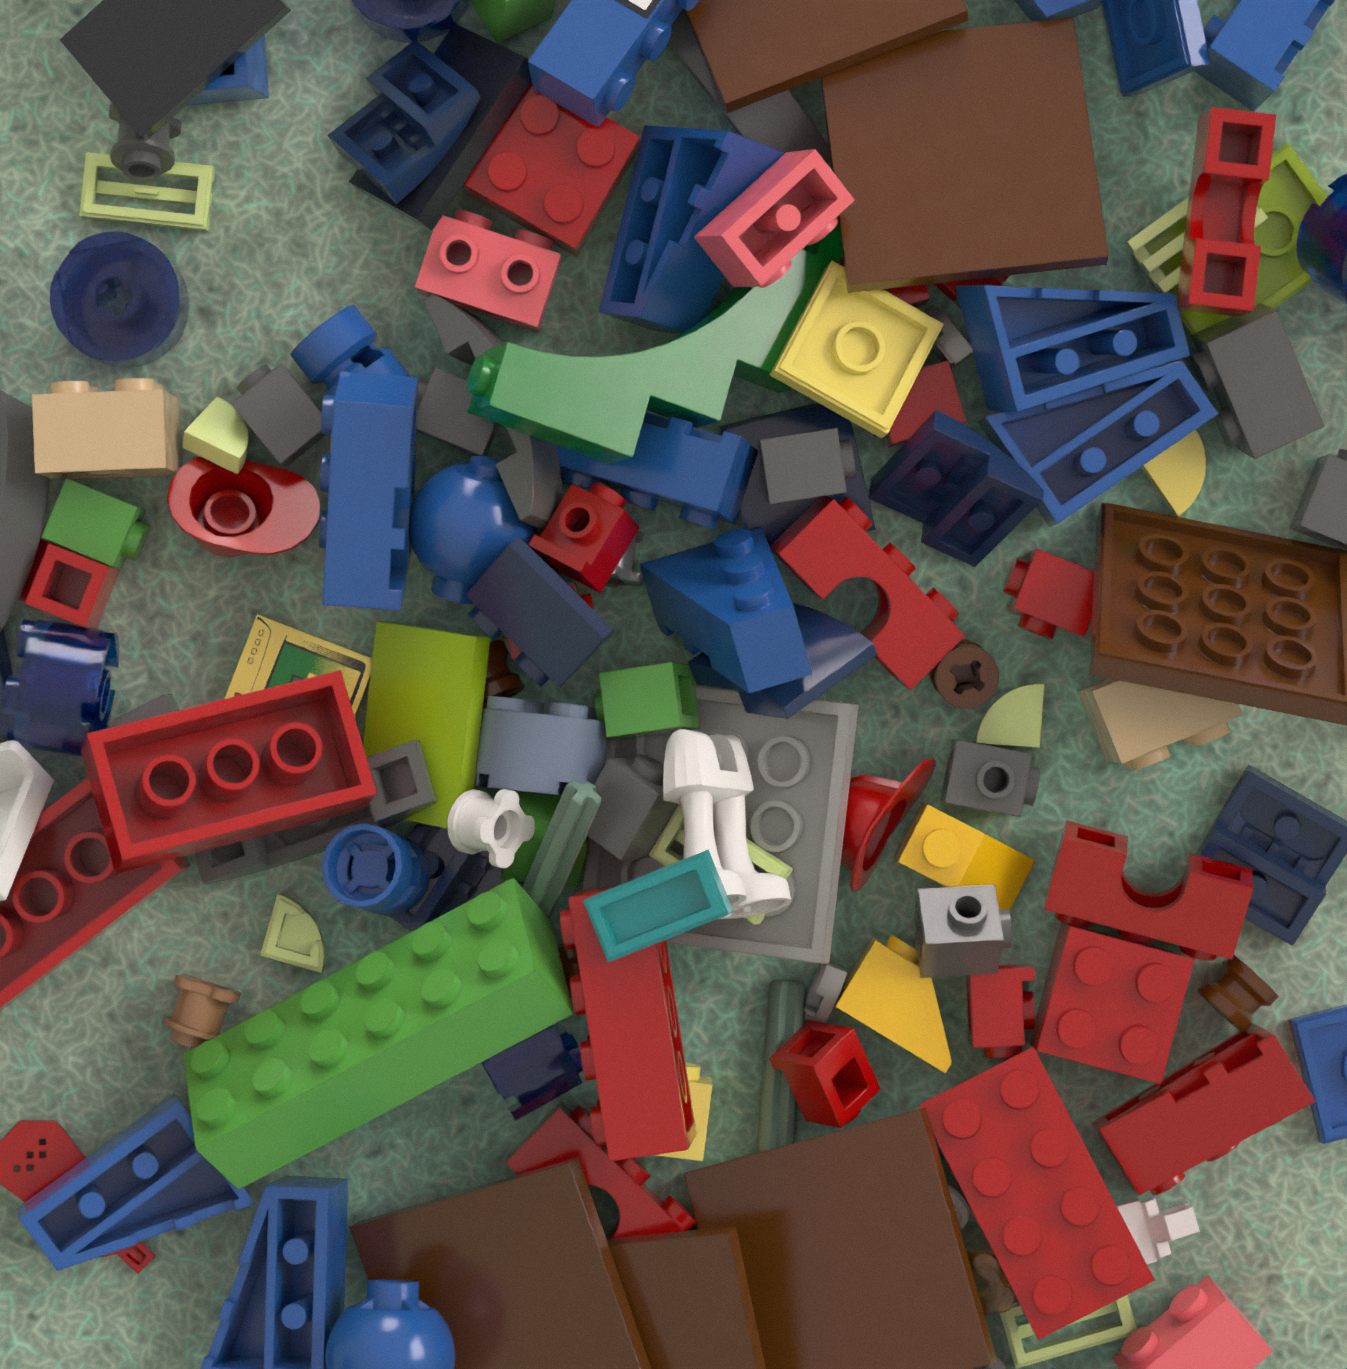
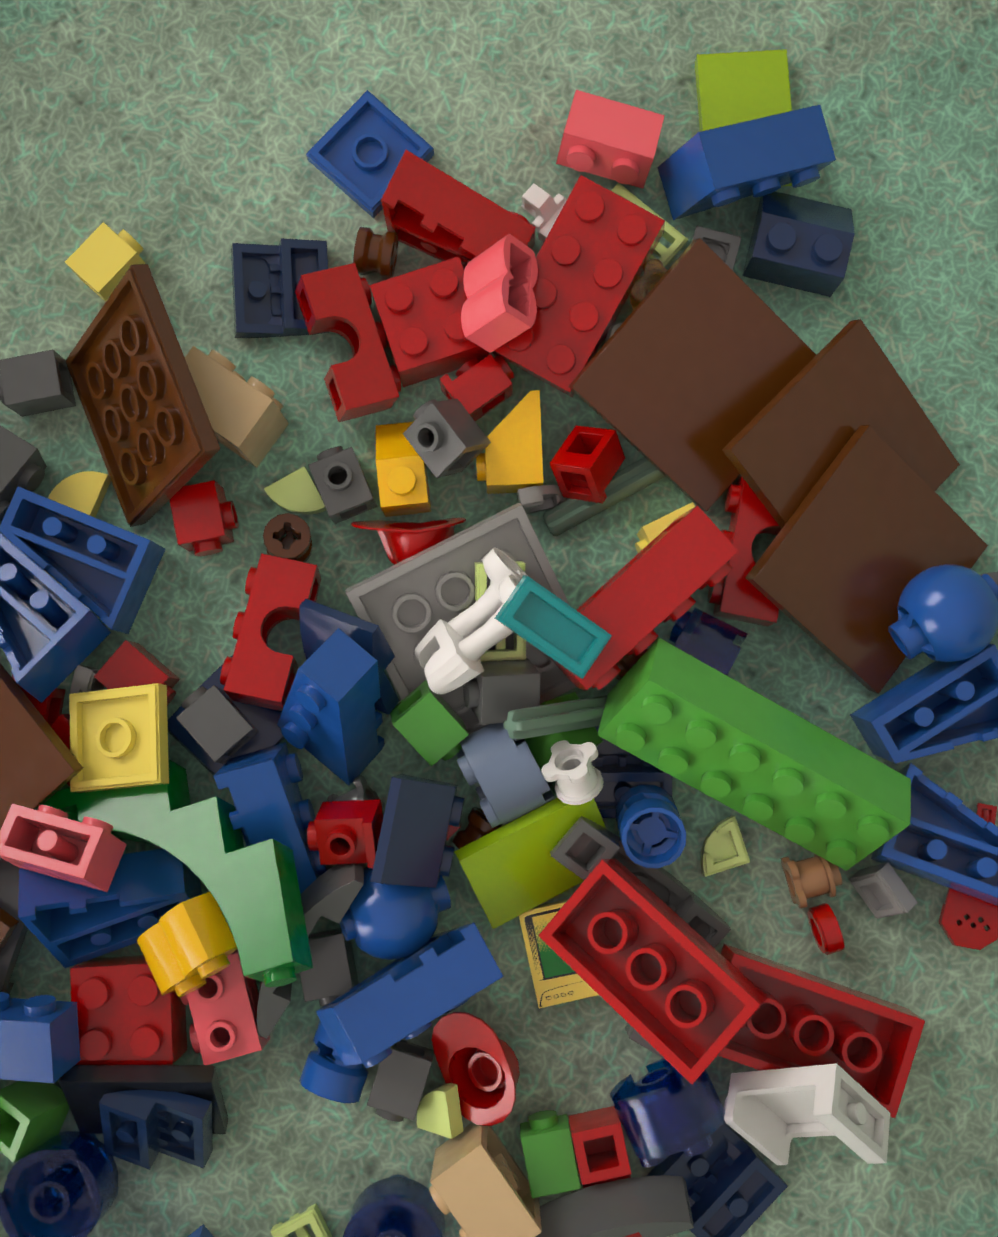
camera: 125 degrees left, 5 degrees down
(133, 988) = (825, 929): none -> red tile
(133, 1080) = (883, 891): none -> light grey tile
(579, 288) = (188, 945): none -> yellow brick
(956, 487) = (171, 618): dark blue slope -> none
(1078, 1097) = (499, 294): none -> coral brick

